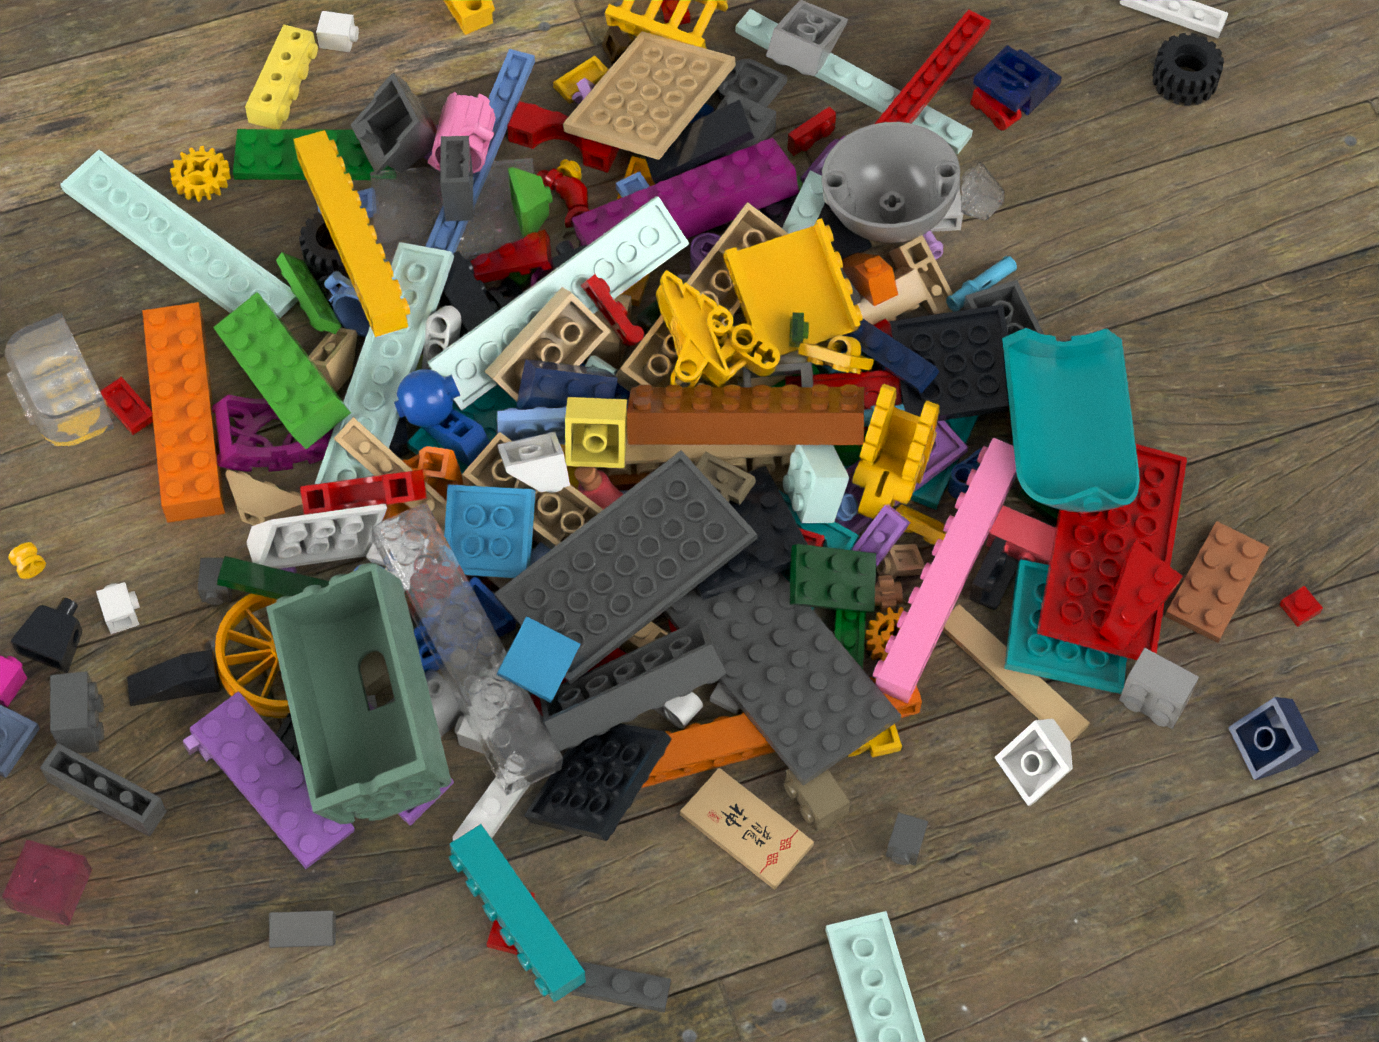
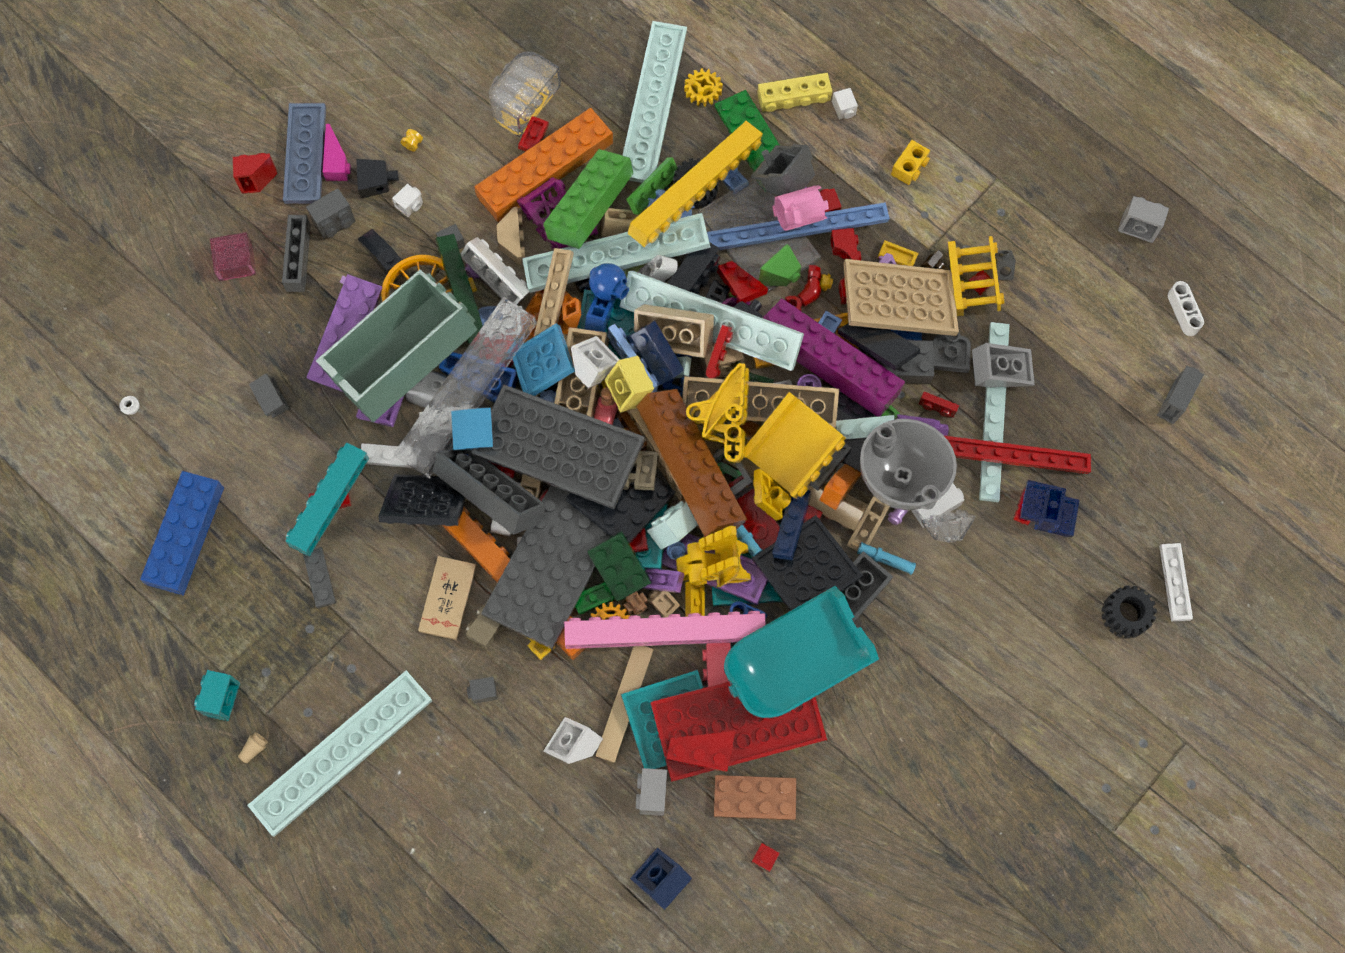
camera: 60 degrees right, 10 degrees up
(363, 492) = (538, 295): red arch -> none
(456, 178) = (755, 221): dark grey window -> none
(798, 329) = (770, 463): clear green plate -> none
(993, 576) = (681, 660): black bracket -> none

